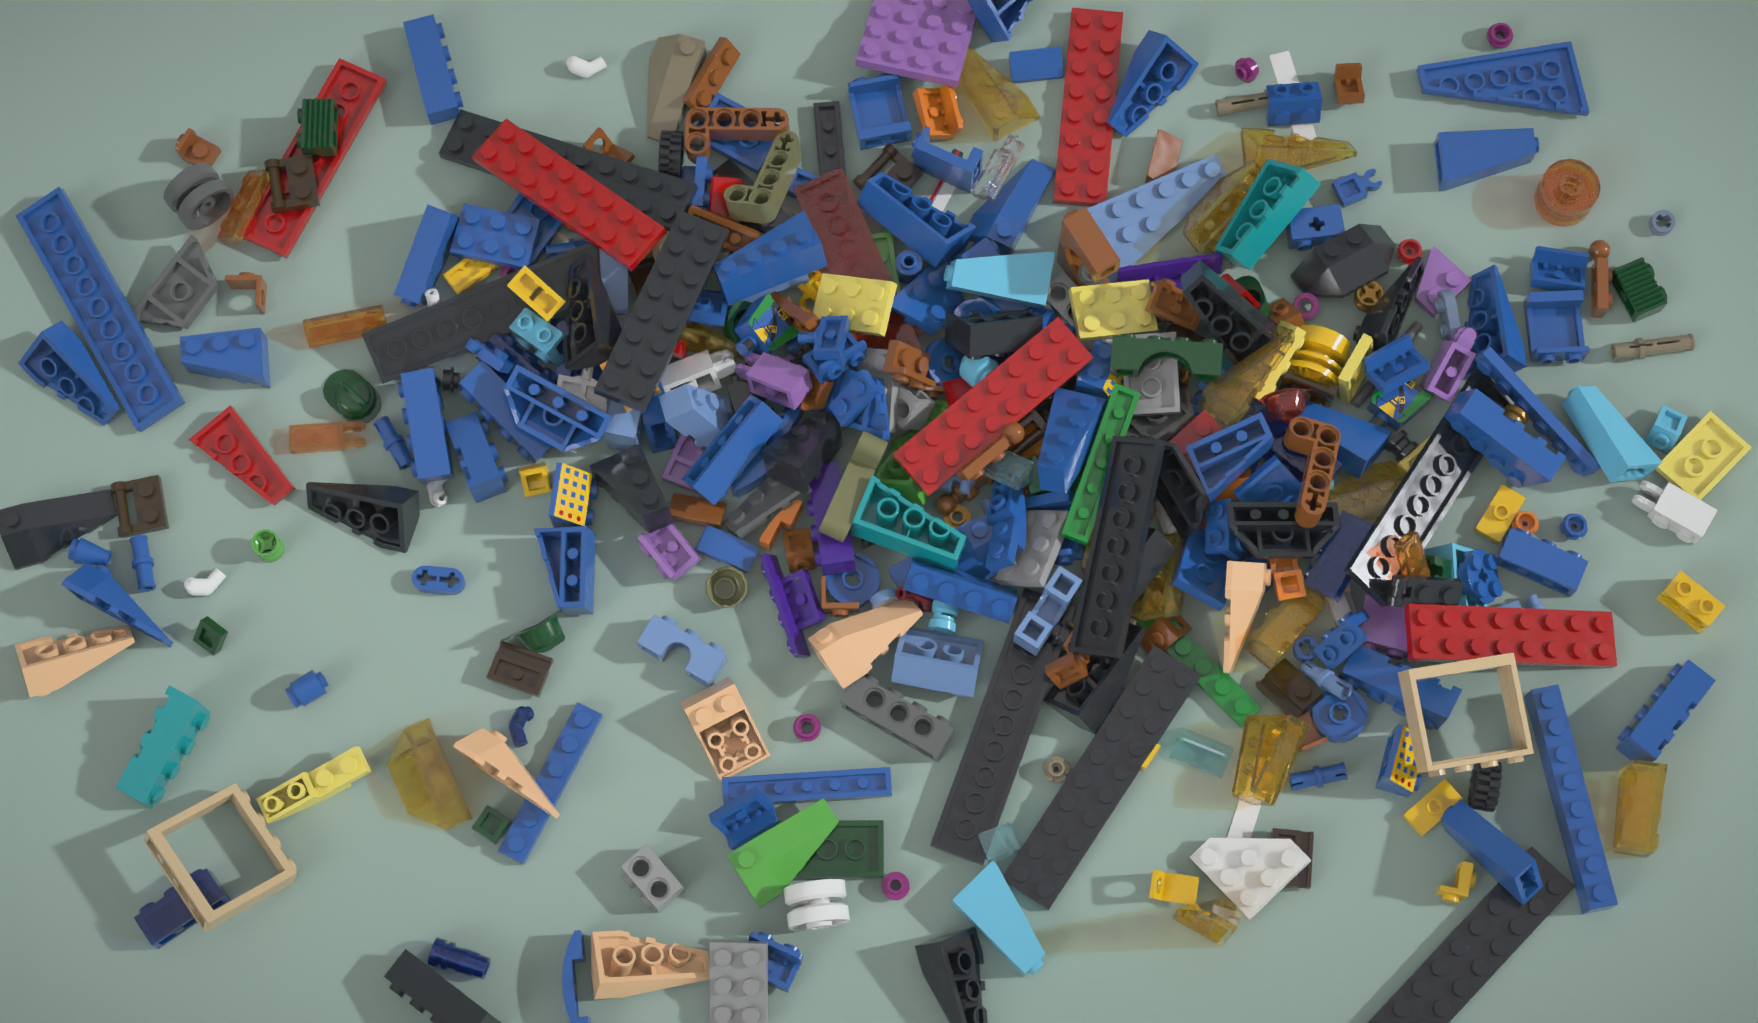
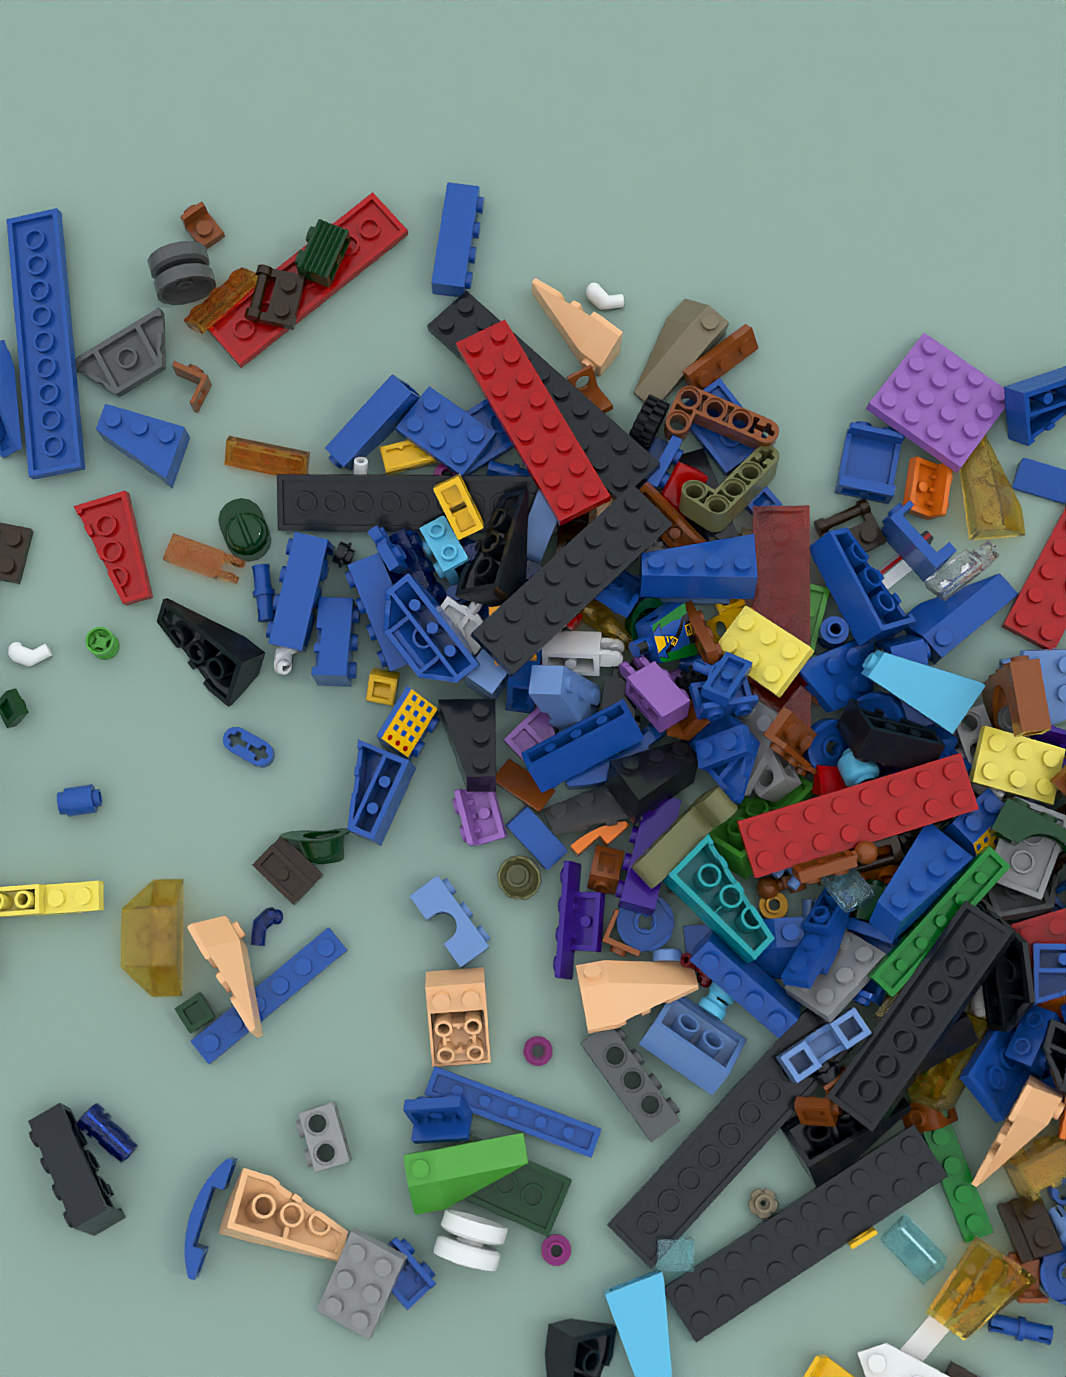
camera: 20 degrees right, 5 degrees up
(586, 104) = (588, 336): none -> light nougat wedge
(829, 137) = (808, 468): black tile -> none

